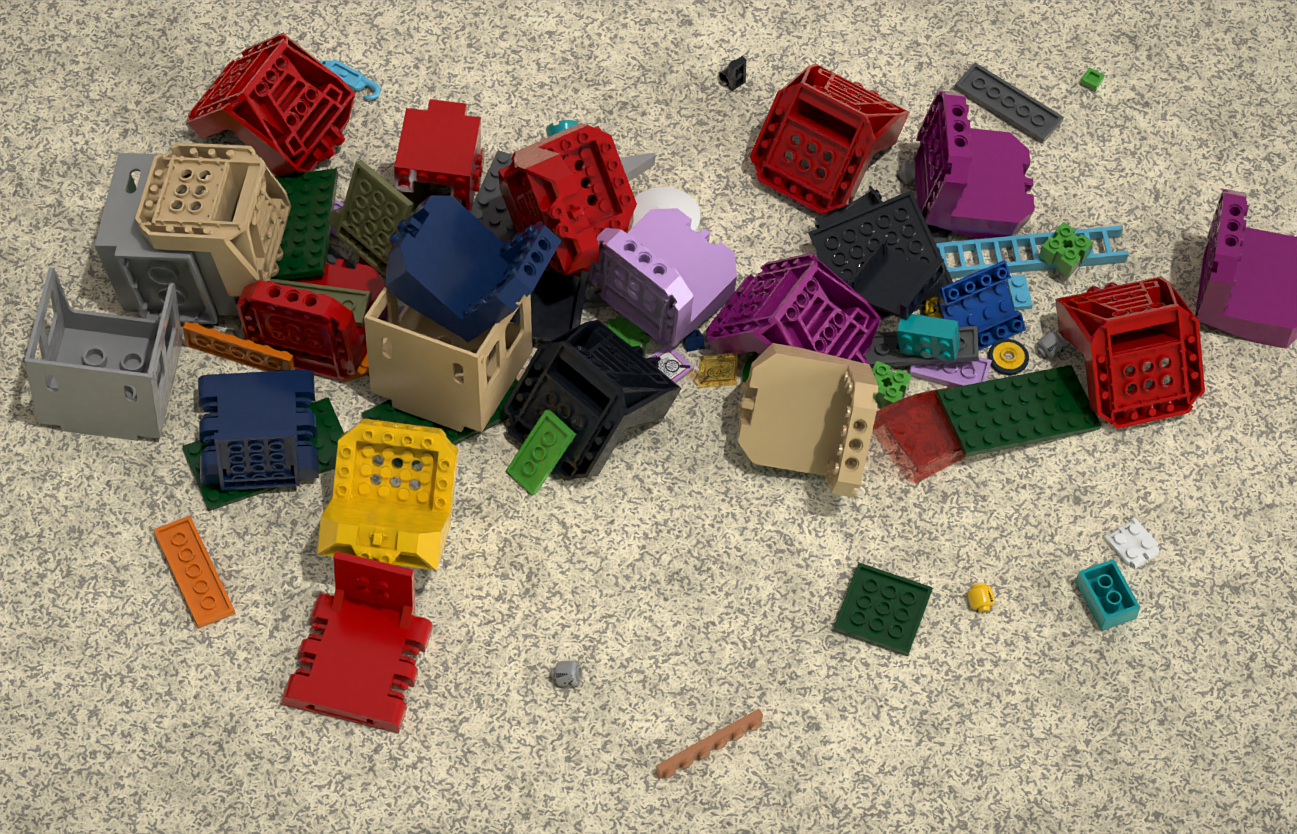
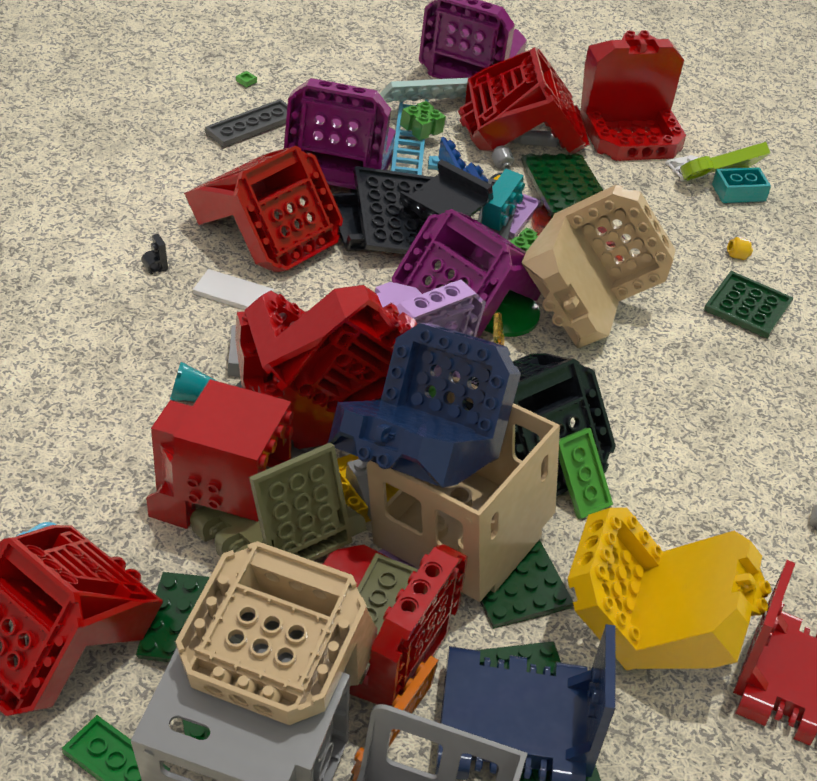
camera: 80 degrees left, 15 degrees down
(718, 148) = (229, 289): none -> white tile
(1132, 247) = (425, 89): none -> light aqua plate
(1147, 581) = (736, 159): none -> lime piece
(1216, 448) = (632, 91): none -> red piece

